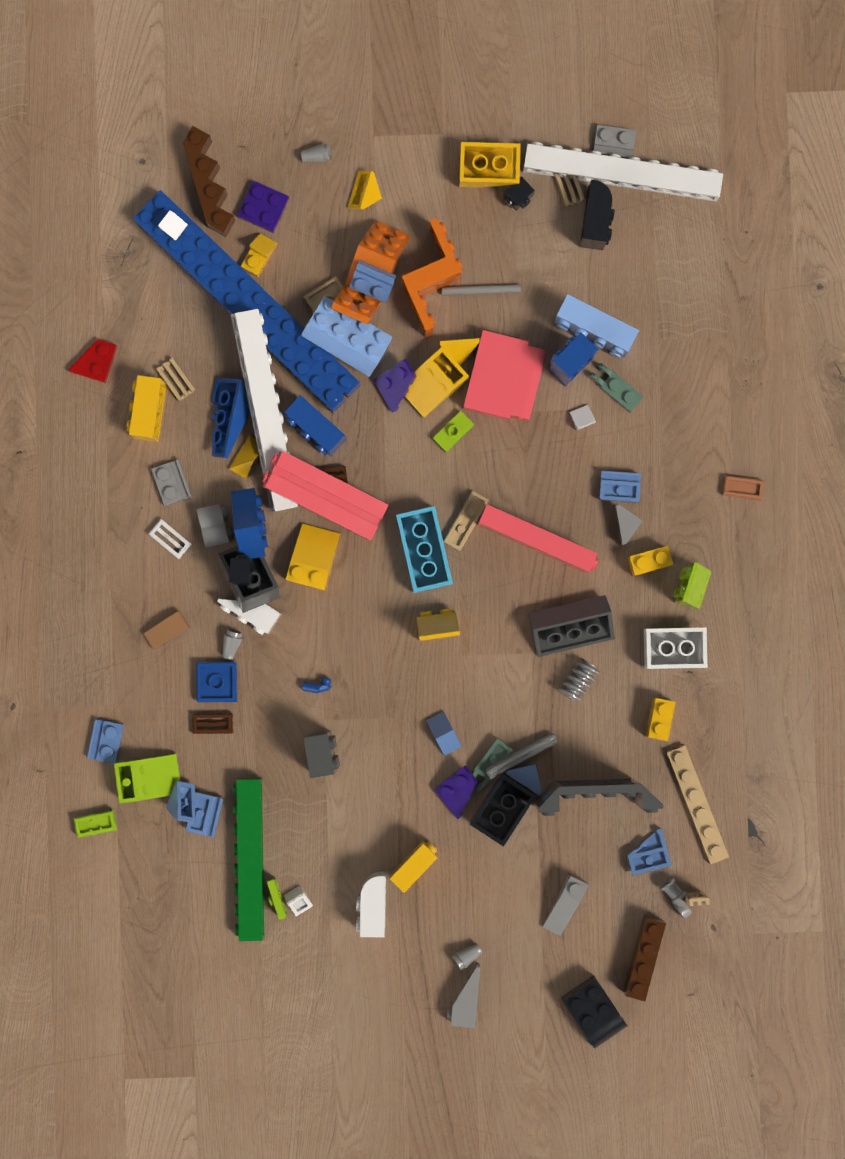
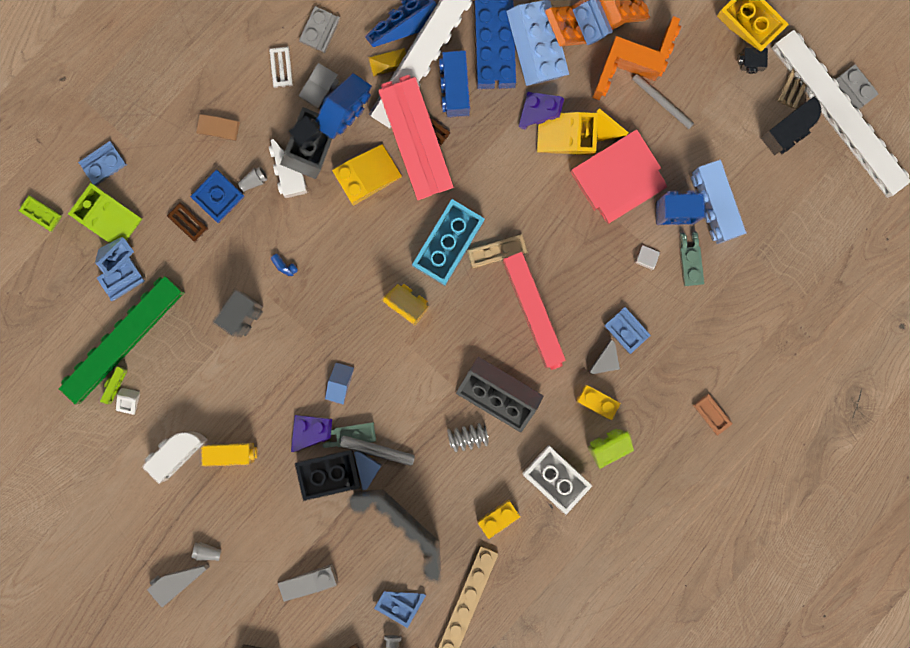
camera: 45 degrees right, 0 degrees up
(453, 431) = (548, 180): lime plate -> none

